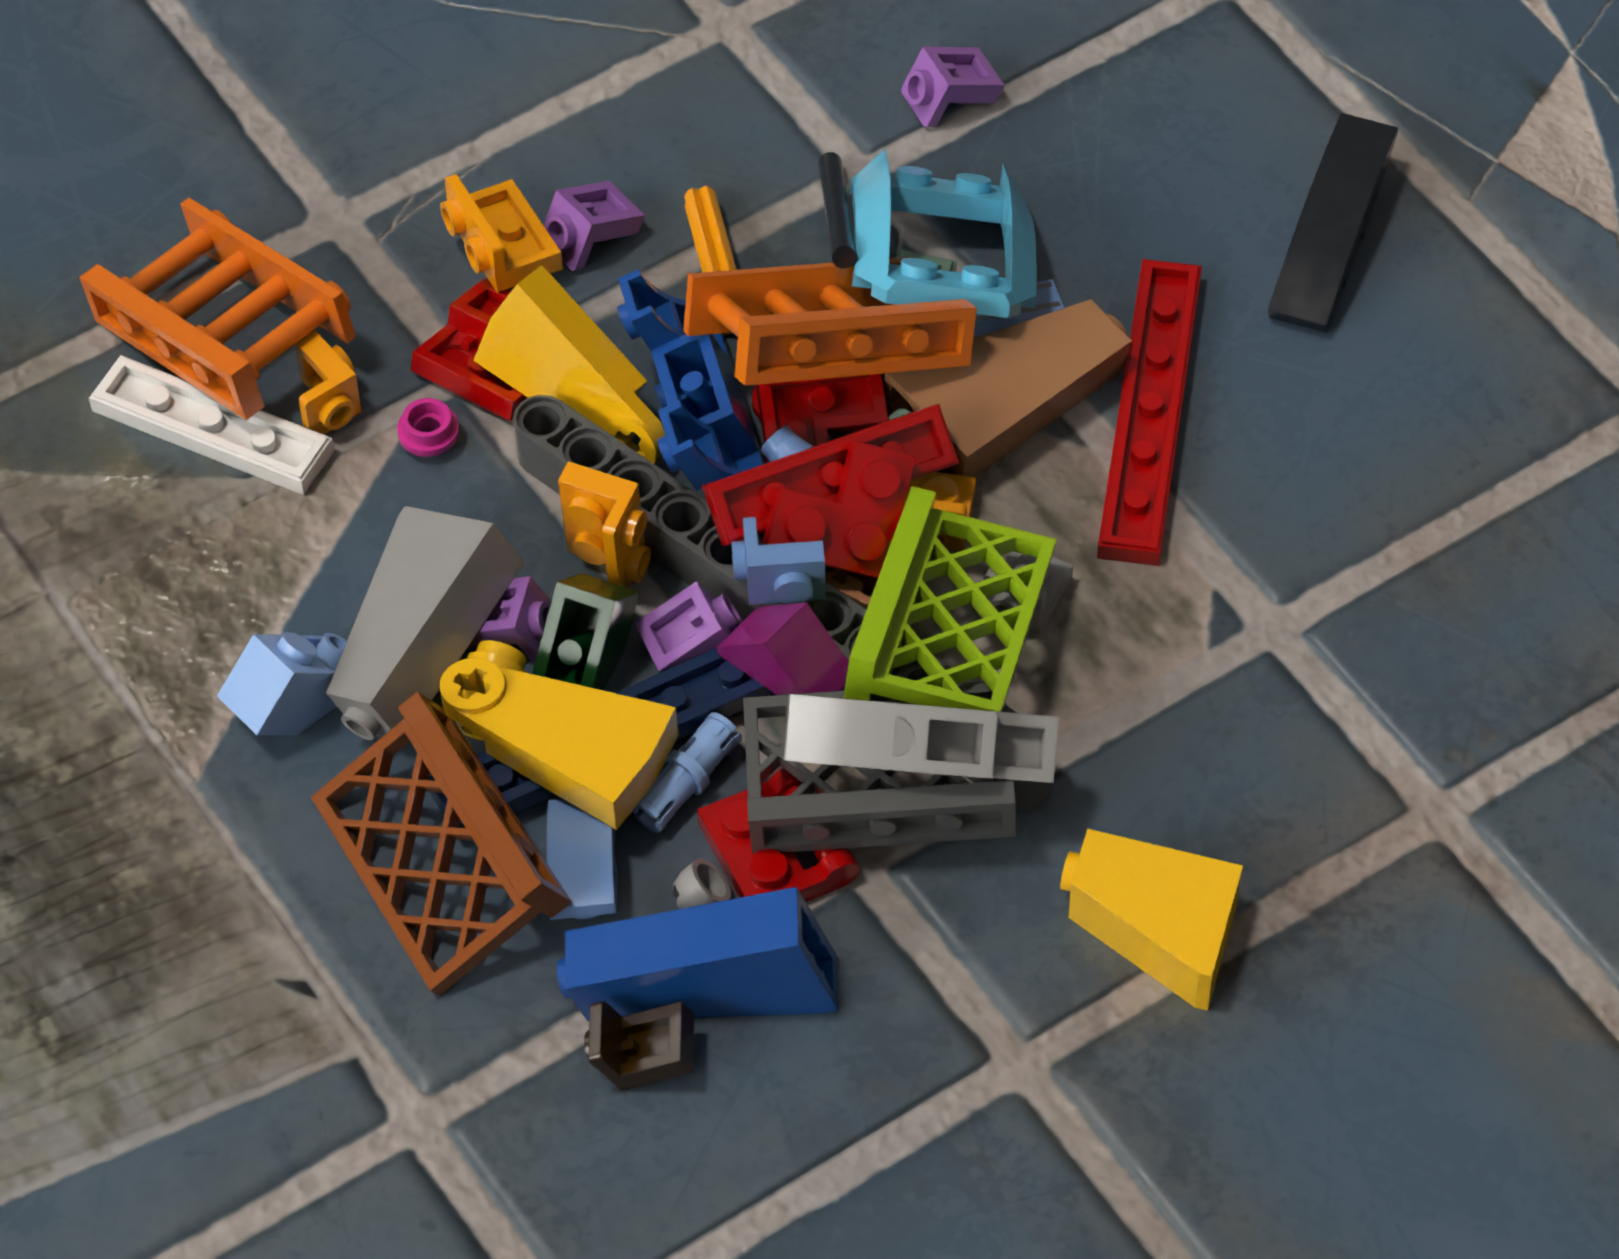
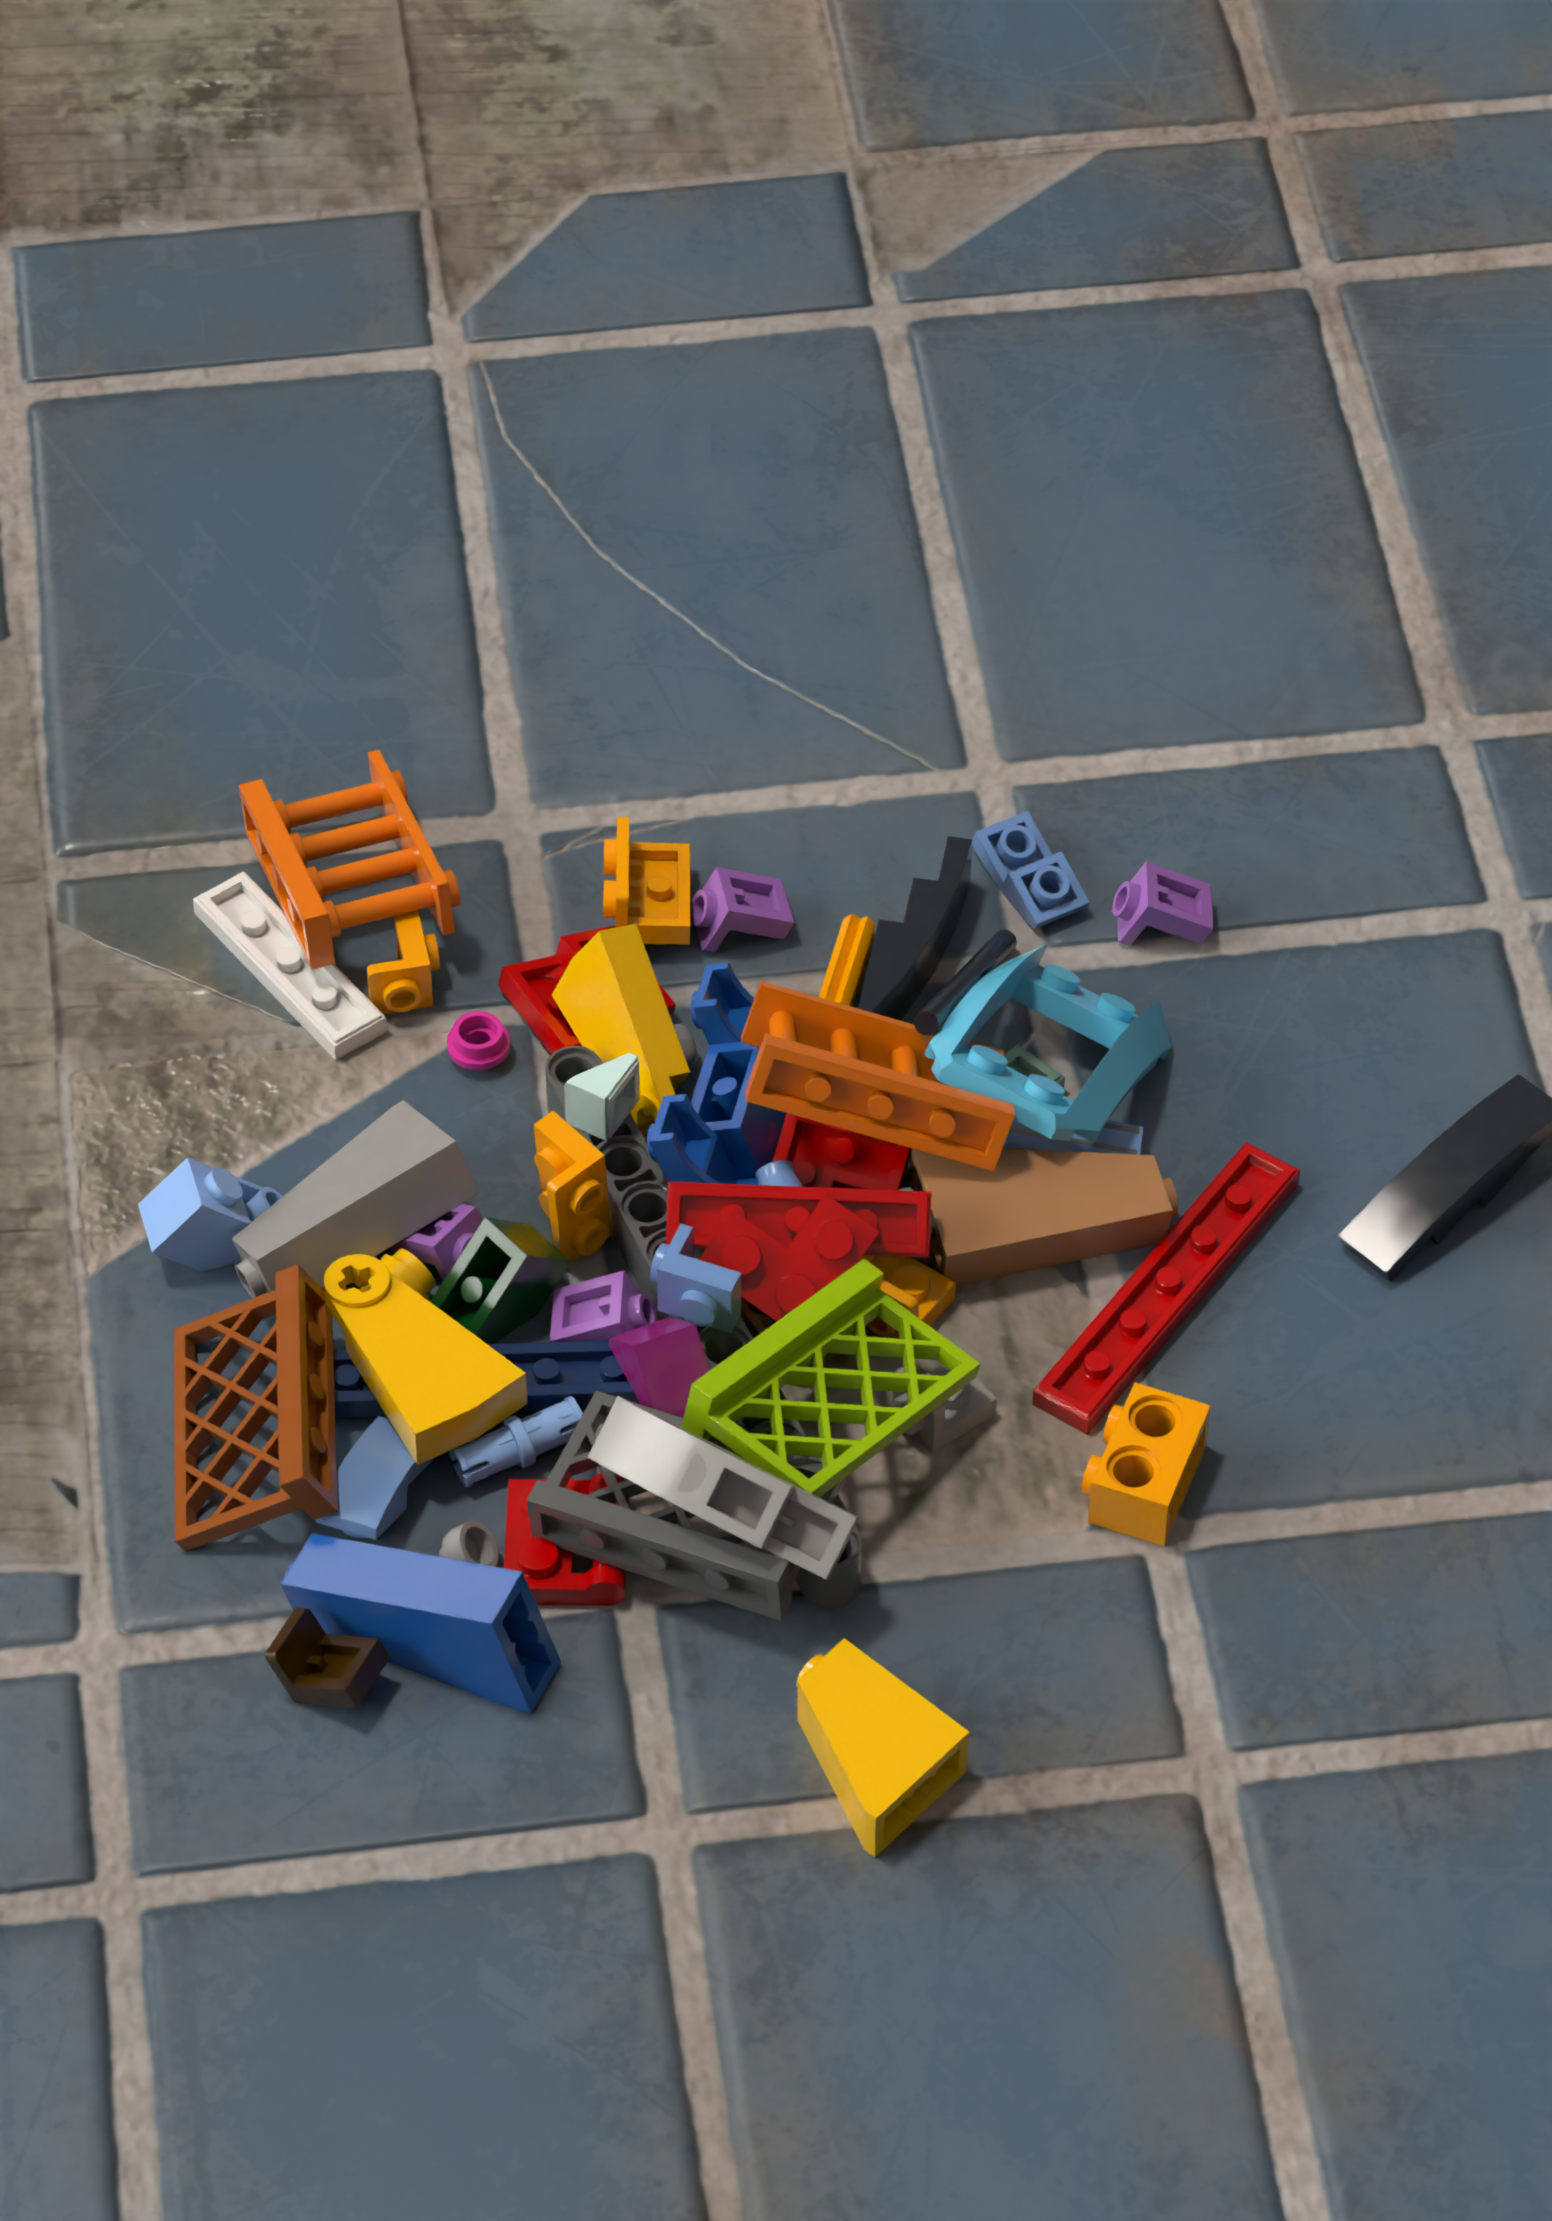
camera: 25 degrees right, 5 degrees down
(592, 431) = (603, 1096): none -> light aqua slope
(757, 196) = (910, 951): none -> black slope
(822, 101) = (1027, 872): none -> medium blue slope
(1242, 568) = (1146, 1463): none -> light orange brick

